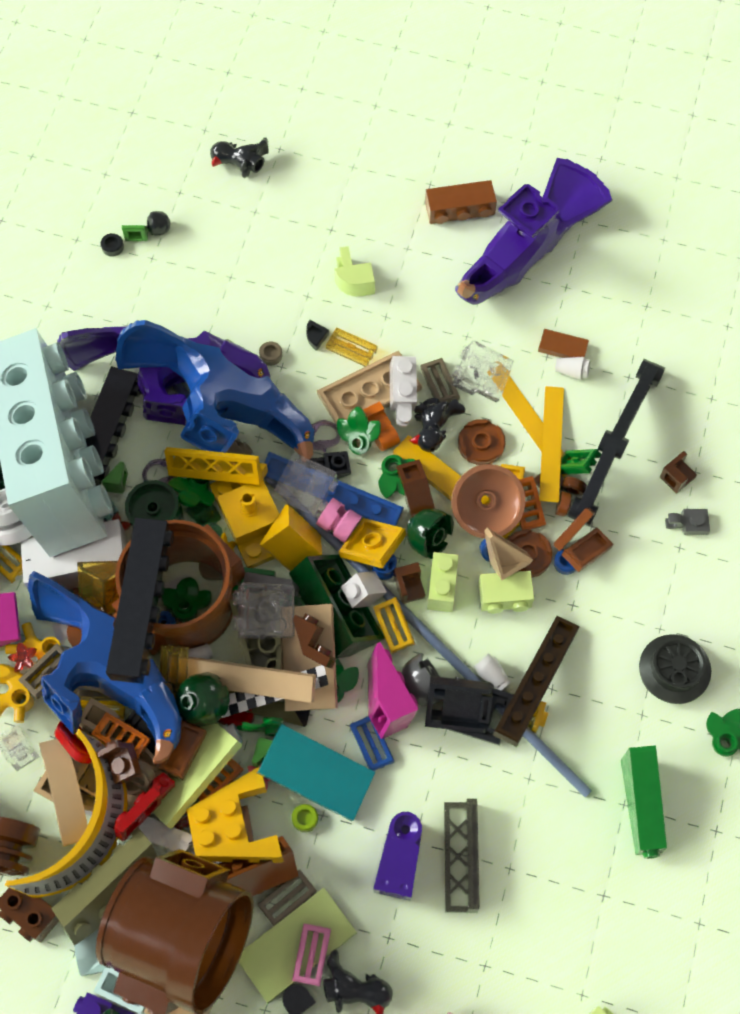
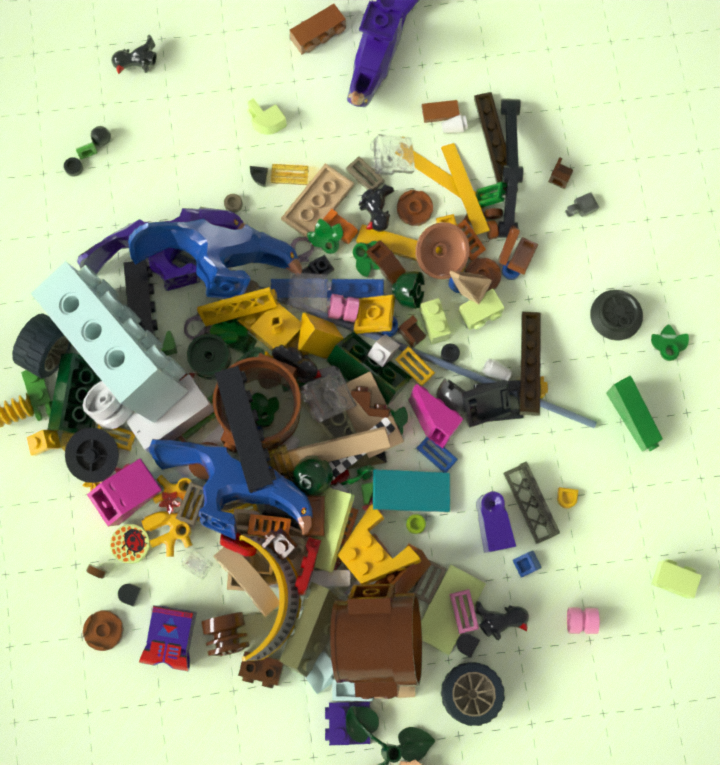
camera: 25 degrees left, 10 degrees up
(98, 584) = (201, 425): clear yellow slope -> none
(254, 562) = (305, 366): none -> black animal
(403, 388) = (344, 191): white brick -> none
(421, 931) = (527, 563): none -> blue slope
(445, 628) = (450, 353): none -> black tile
(511, 870) = (567, 497): none -> yellow tile
(615, 392) = (492, 133): none -> dark brown tile

